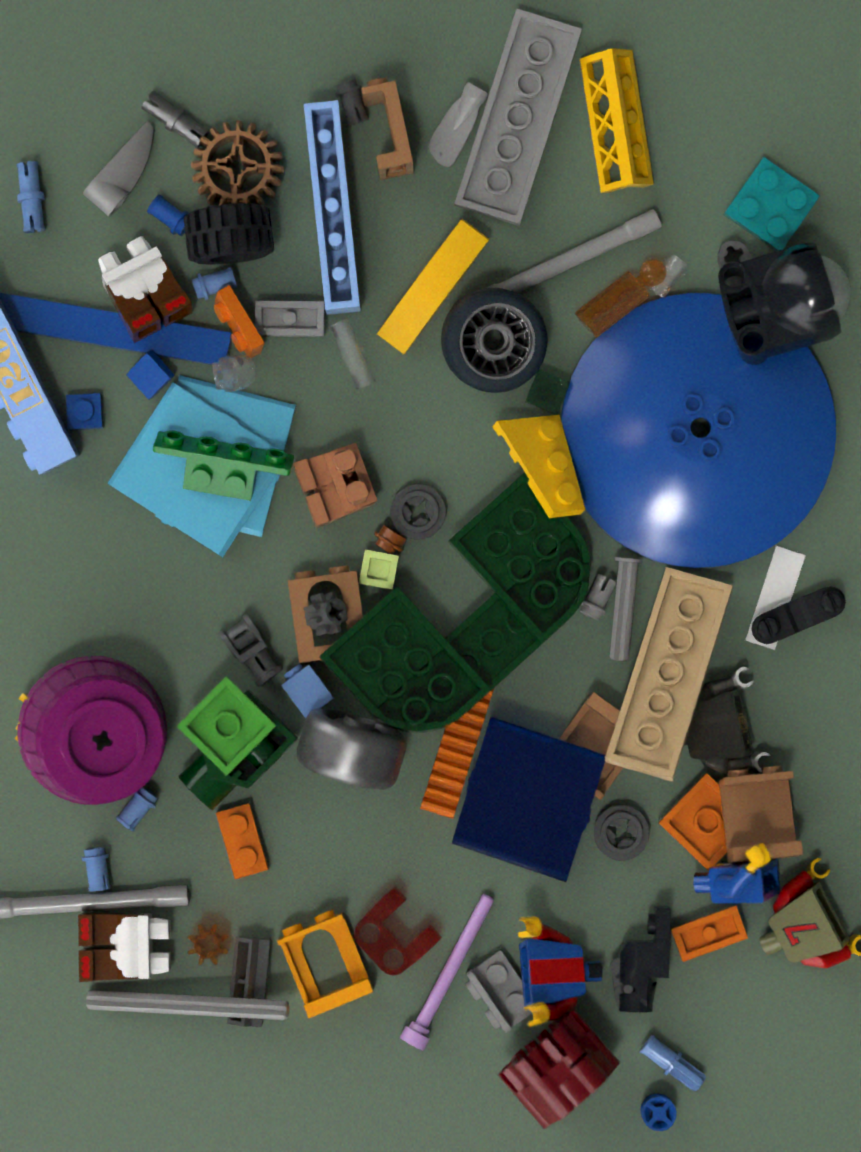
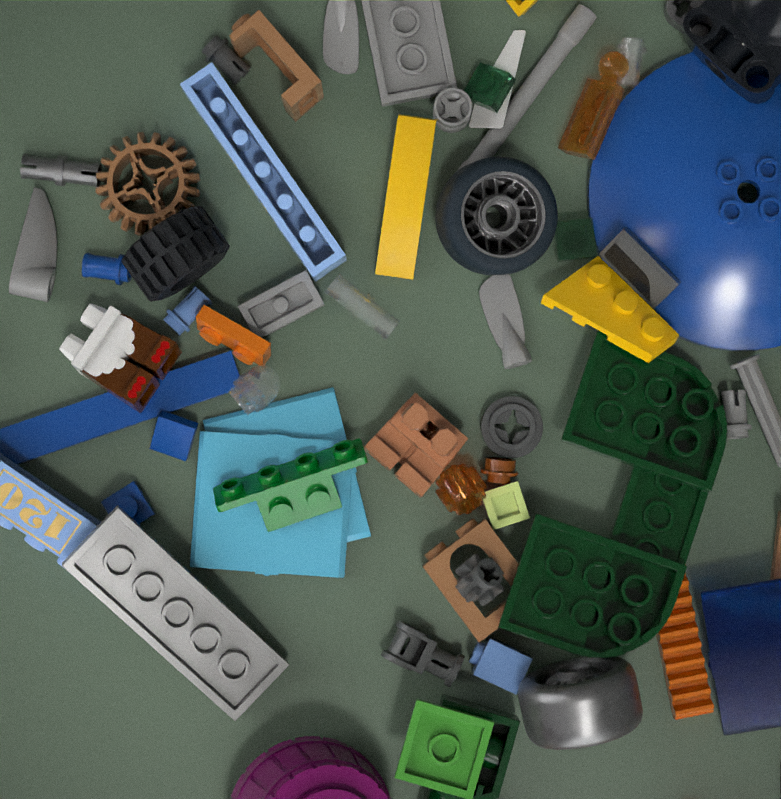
camera: 30 degrees left, 0 degrees up
(77, 512) = (175, 613): none -> light grey plate
(351, 537) = (461, 489): none -> clear orange gear
(459, 425) = (505, 319): none -> light grey piece
(505, 232) = (452, 103): none -> light grey wheel
(546, 235) = (489, 86): none -> clear green plate
(551, 241) = (507, 62): none -> white sticker
(585, 441) = (639, 267): none -> dark grey slope

